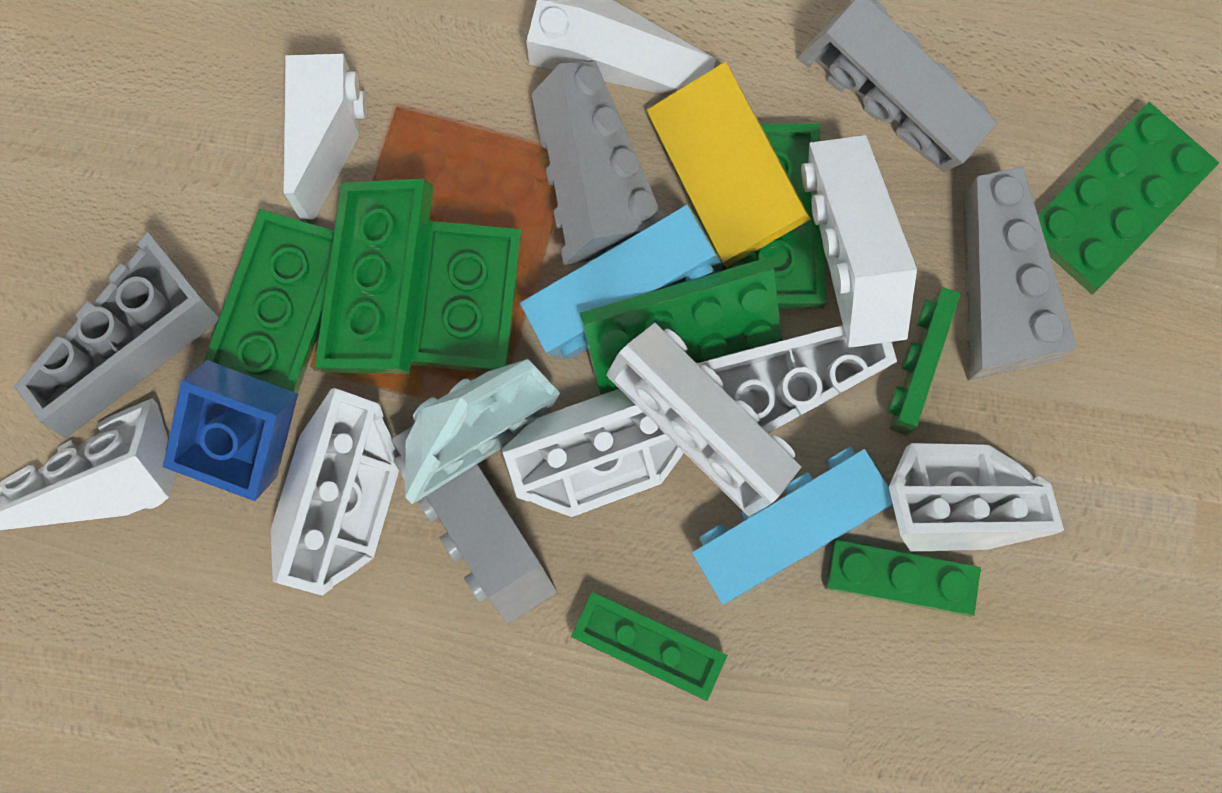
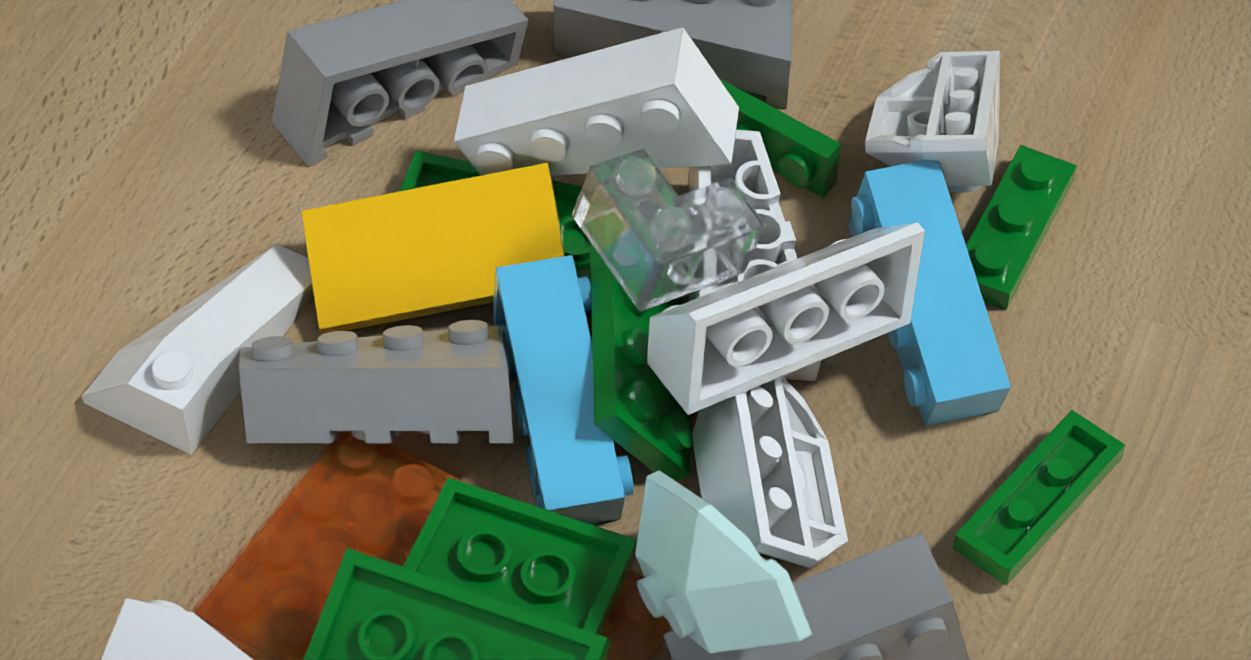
camera: 75 degrees left, 25 degrees down
(734, 314) = (660, 240): none -> clear brick

